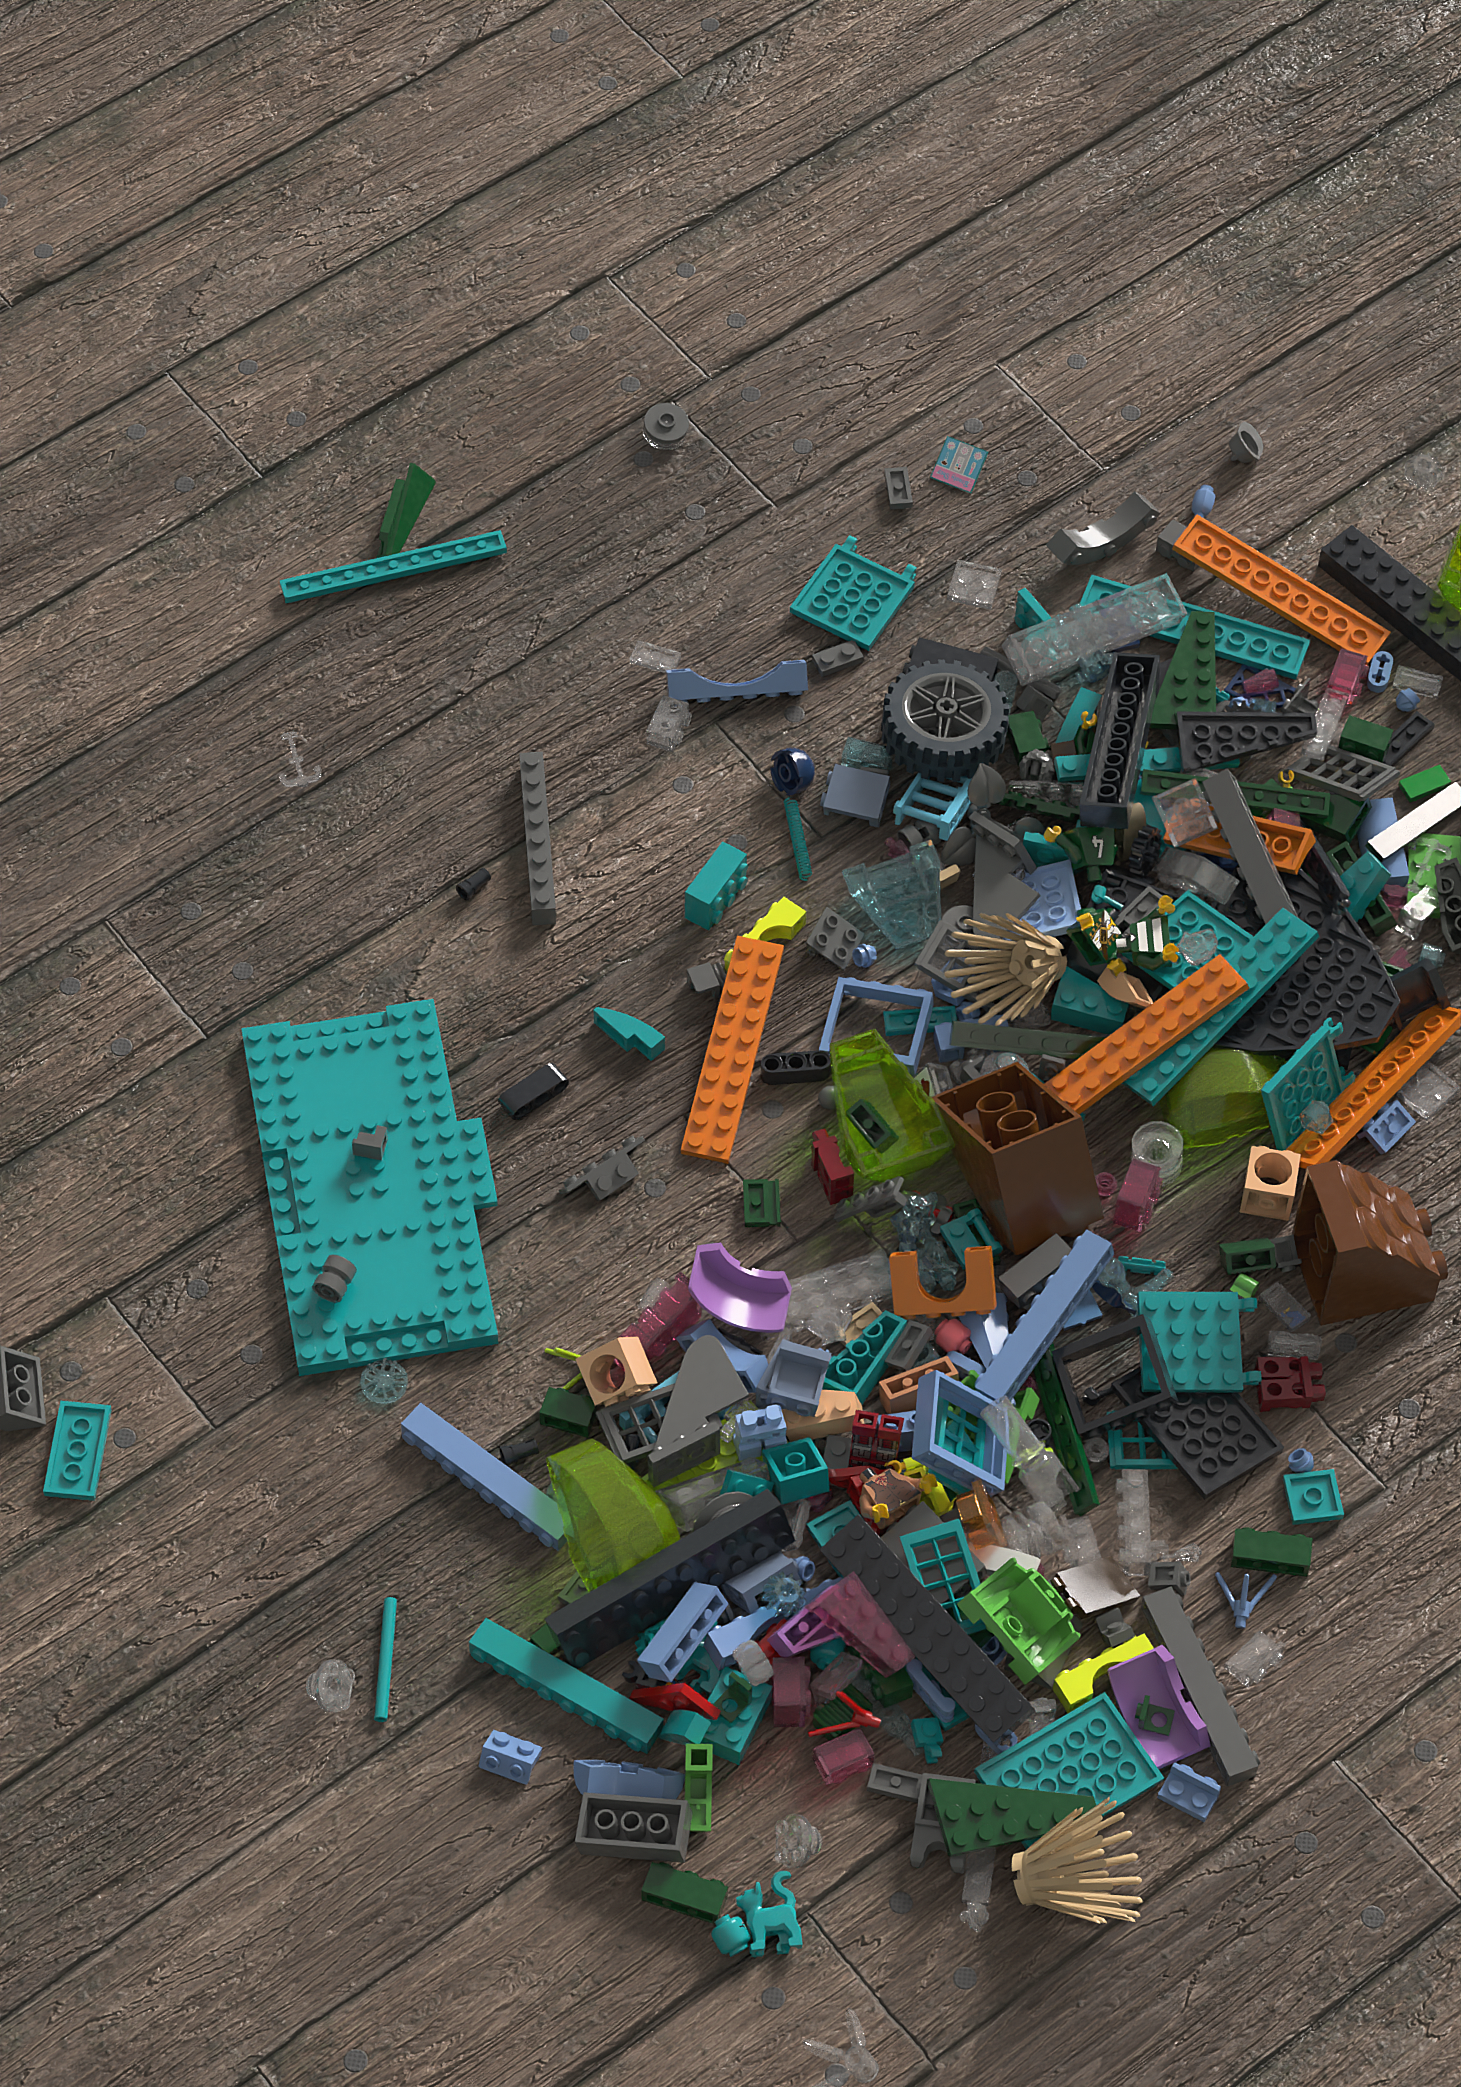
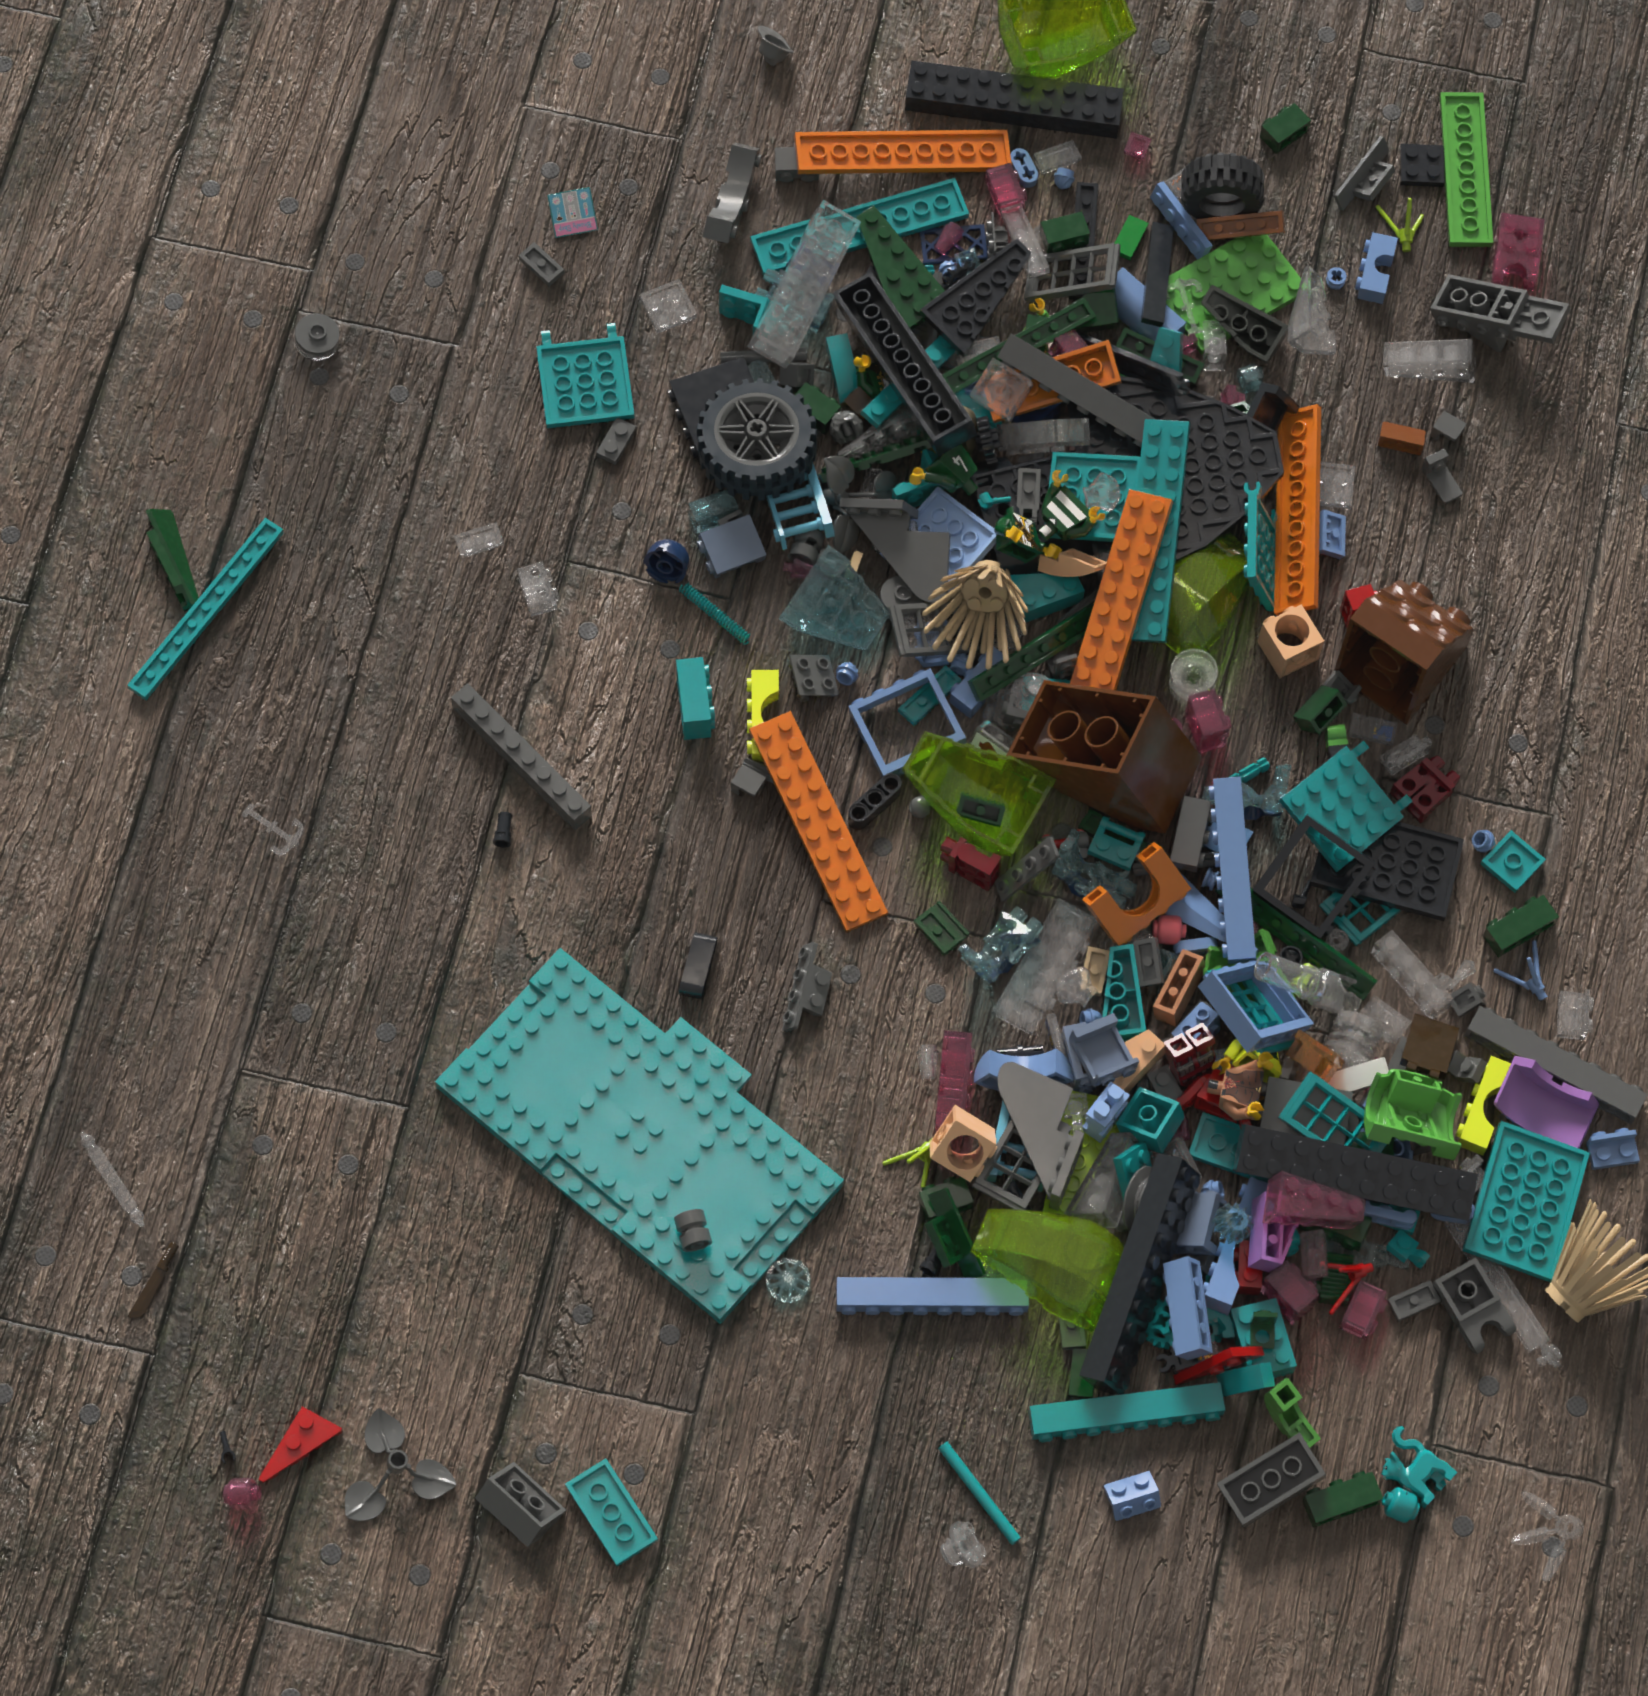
camera: 40 degrees left, 10 degrees up
(371, 1144) = (621, 1101): dark grey panel -> none
(541, 1437) = (951, 1236): none -> dark green bracket
(627, 1779) = (1234, 1447): medium blue brick -> none
(630, 1032) = (727, 864): teal slope -> none
(738, 1296) = (1000, 1015): medium lavender panel -> none
(753, 1662) = (1257, 1292): clear gear -> none
(785, 677) = (593, 488): medium blue arch -> none
(796, 1841) = (1387, 1400): clear plate -> none
(810, 1249) = (1009, 937): none -> clear light blue hips
(993, 1816) = (1511, 1273): dark green wing -> none
(1145, 1712) = (1539, 1114): dark green bracket -> none
(1203, 501) = (781, 117): medium blue plant -> none
(1316, 1117) = (1282, 565): clear light blue plate -> none

